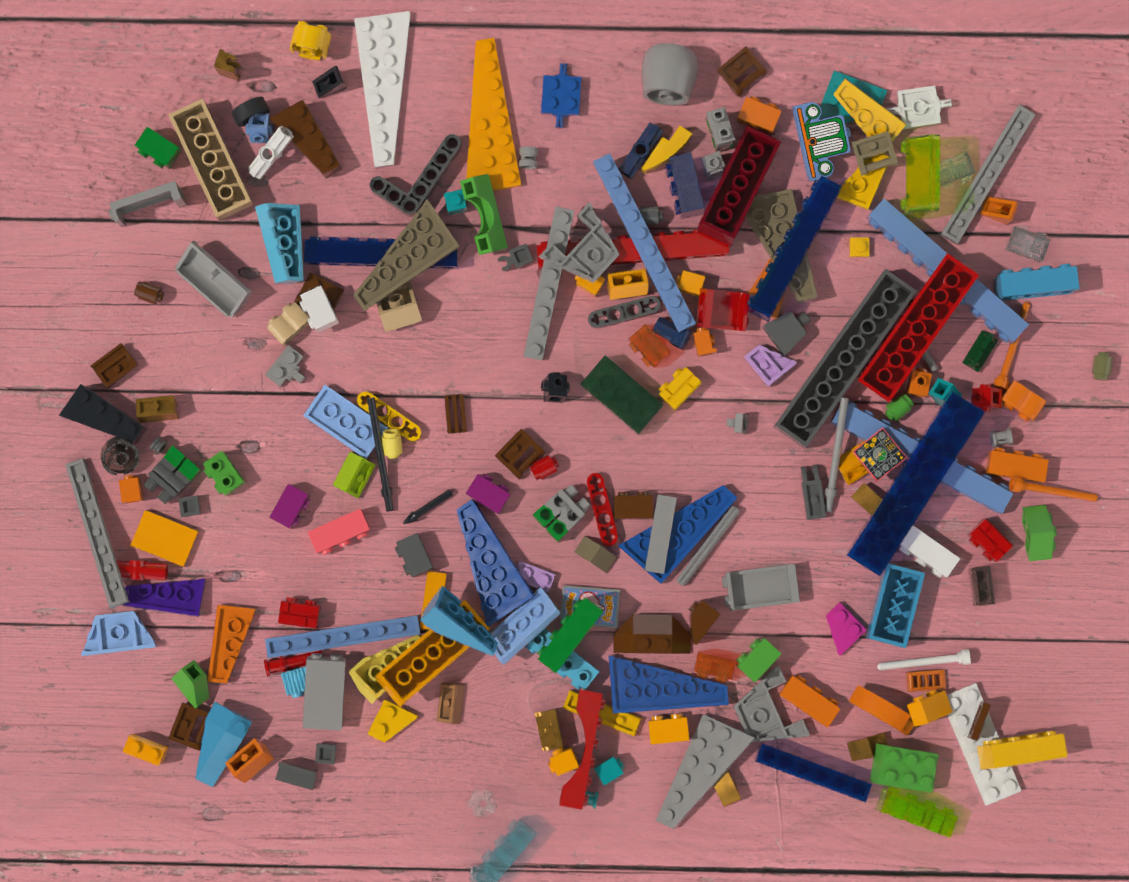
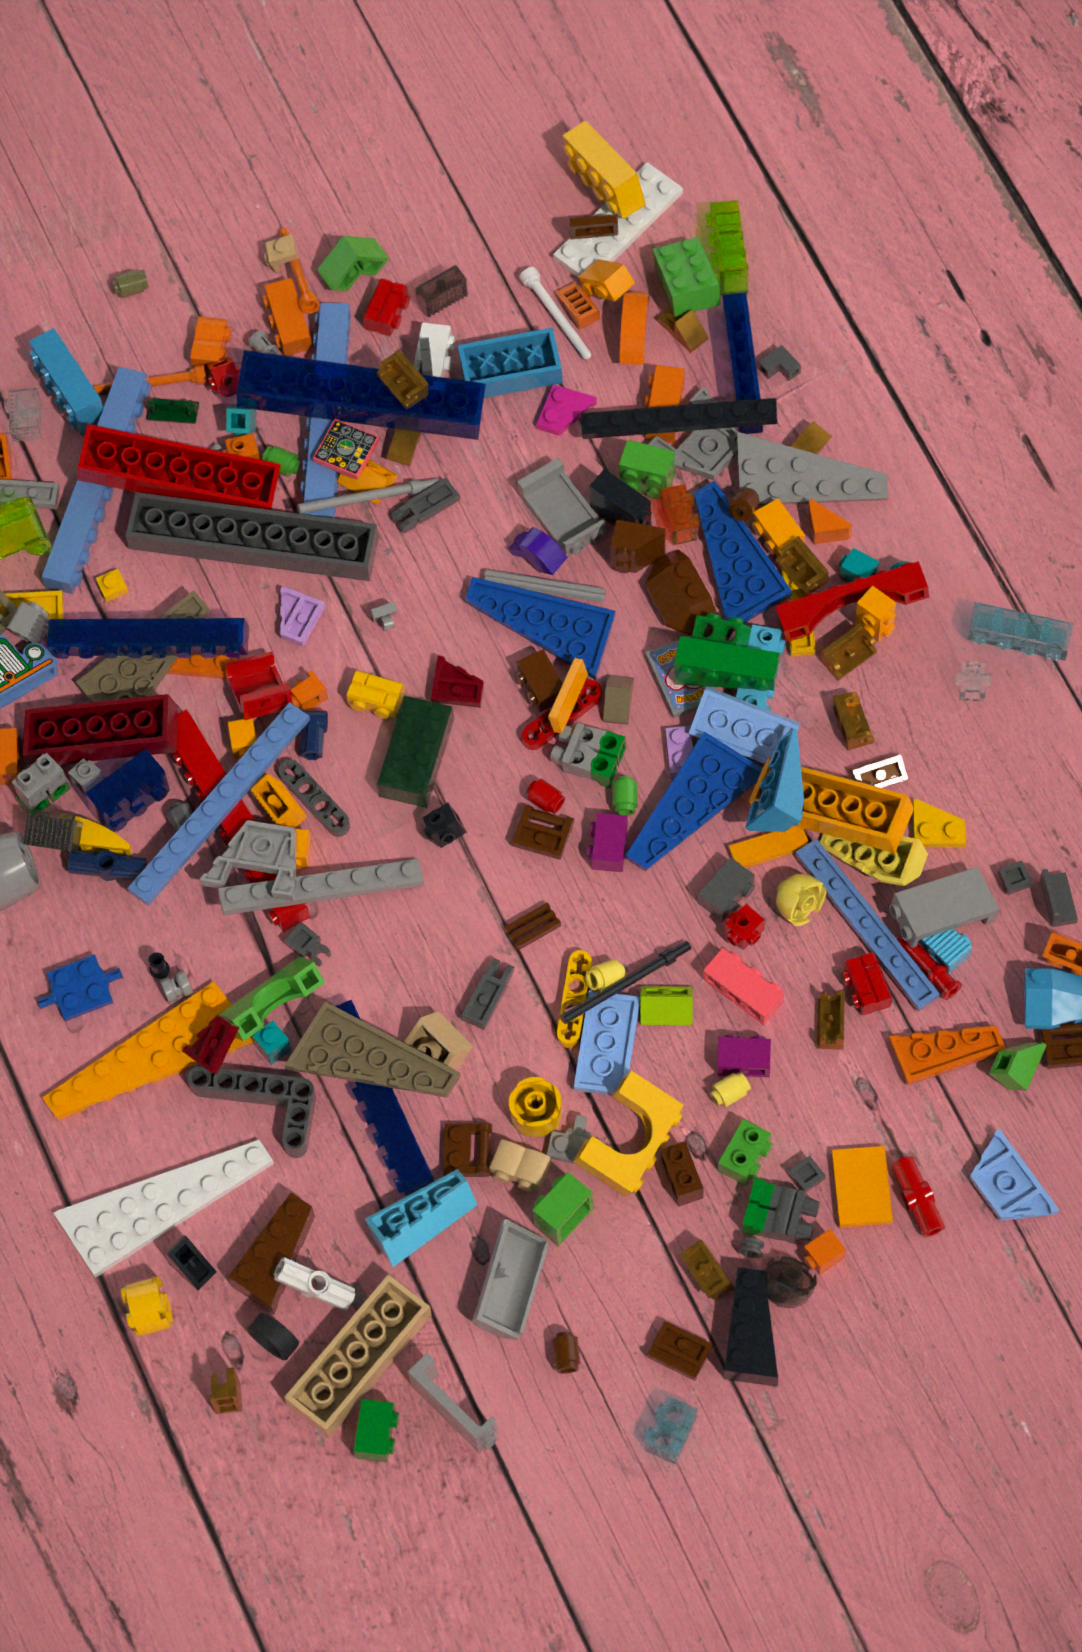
camera: 115 degrees left, 20 degrees down
(62, 337) = (676, 1431): none -> clear light blue brick
(97, 533) = (898, 1263): light grey tile -> none
(172, 597) = (930, 1144): dark purple wing -> none
(229, 425) = (681, 1173): none -> reddish brown brick
(241, 335) = (562, 1208): none -> bright green piece
(249, 391) = (658, 1114): none -> yellow arch
(259, 128) = (291, 1313): medium blue brick -> none
(271, 485) = (730, 1089): none -> light yellow brick
(286, 576) = (830, 1020): none -> pearl gold hinge
(316, 342) = (535, 1121): none -> yellow brick
(319, 309) = (484, 1129): white brick -> none
(382, 599) = (799, 897): none -> light yellow cylinder
(384, 557) = (744, 927): none -> red brick
(413, 516) = (680, 913): black piece -> none
(419, 359) = (487, 996): none -> dark grey hinge
(466, 158) = (212, 1043): none -> dark red wing
(496, 705) = (852, 720): none -> pearl gold hinge
(518, 521) = (624, 795): none -> bright green brick
(550, 157) = (158, 966): none -> black pin
(596, 642) = (721, 630): none -> green brick
(607, 517) = (568, 695): none -> light orange tile
(627, 730) = (802, 566): none -> pearl gold hinge
(648, 346) = (341, 749): clear orange brick -> none
(655, 764) = (827, 525): none -> orange slope
(660, 447) = (455, 686): none -> dark red wing
(660, 534) = (558, 634): light grey tile -> none
(676, 120) = (52, 832): none -> clear smoke brick
(695, 714) = (744, 504): none -> reddish brown brick
(734, 553) = (539, 549): none -> dark purple brick
(738, 627) = (618, 501): none -> black brick
(785, 702) = (679, 418): none -> black plate
(786, 331) = (257, 609): dark grey torso -> none
(805, 802) = (780, 361): none -> dark grey piece
(846, 173) = (30, 622): none -> light grey brick
(905, 515) = (403, 379): none -> pearl gold hinge
(918, 541) = (425, 364): none -> dark grey plate
(1072, 485) = (281, 251): none -> tan bracket

